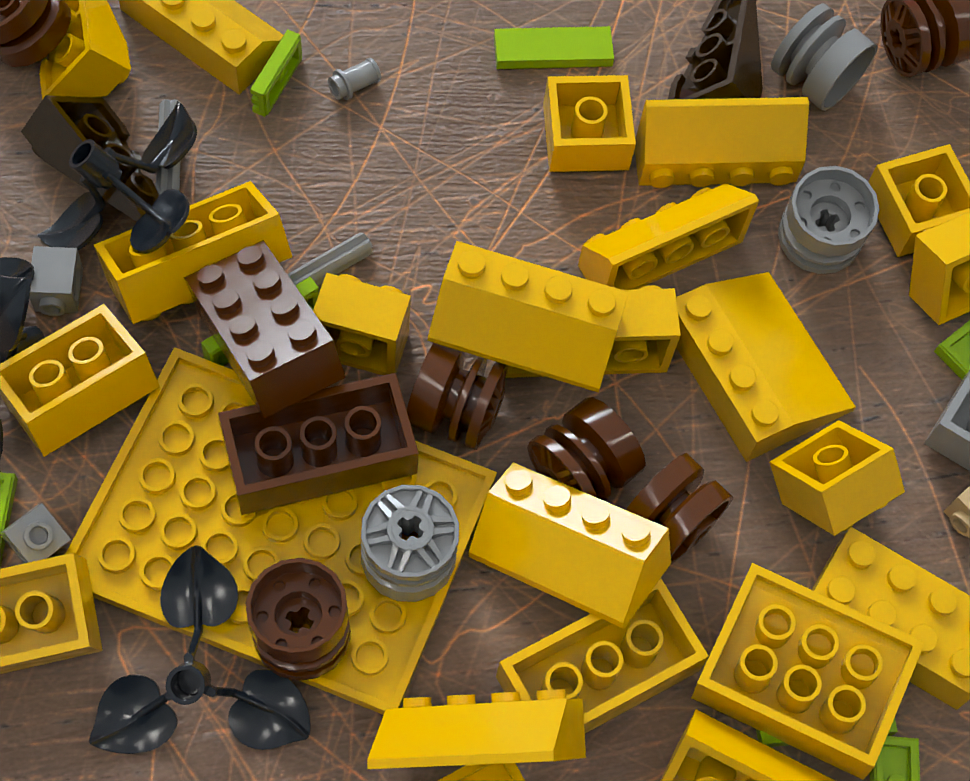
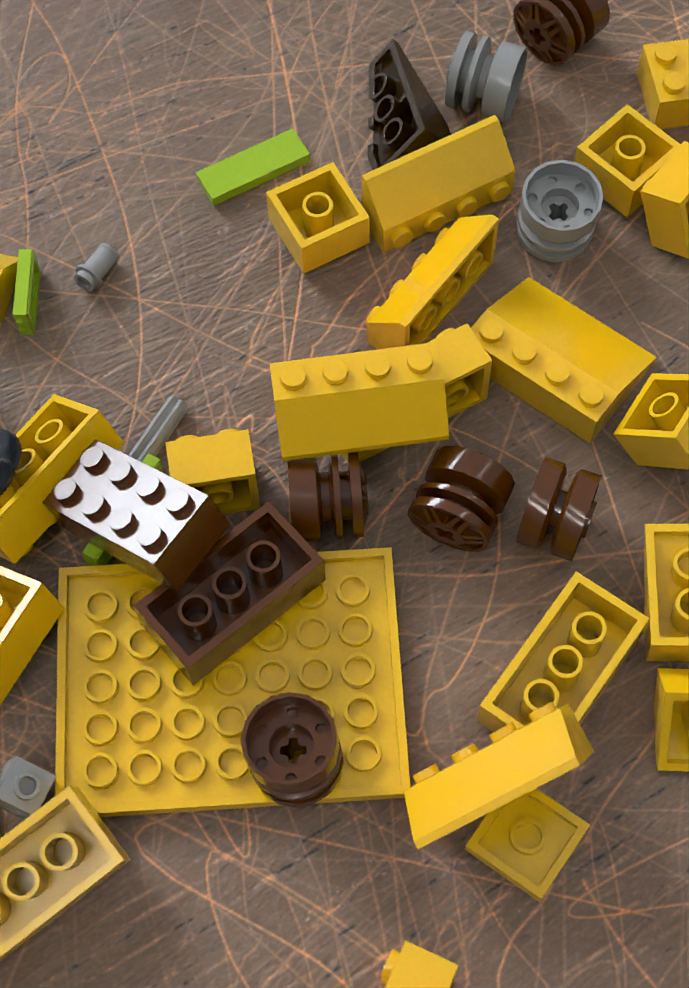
camera: 15 degrees left, 0 degrees up
(135, 714) = (190, 901): black plant -> none
(415, 566) = (355, 664): light grey wheel -> none
(570, 544) = (487, 579): yellow slope -> none

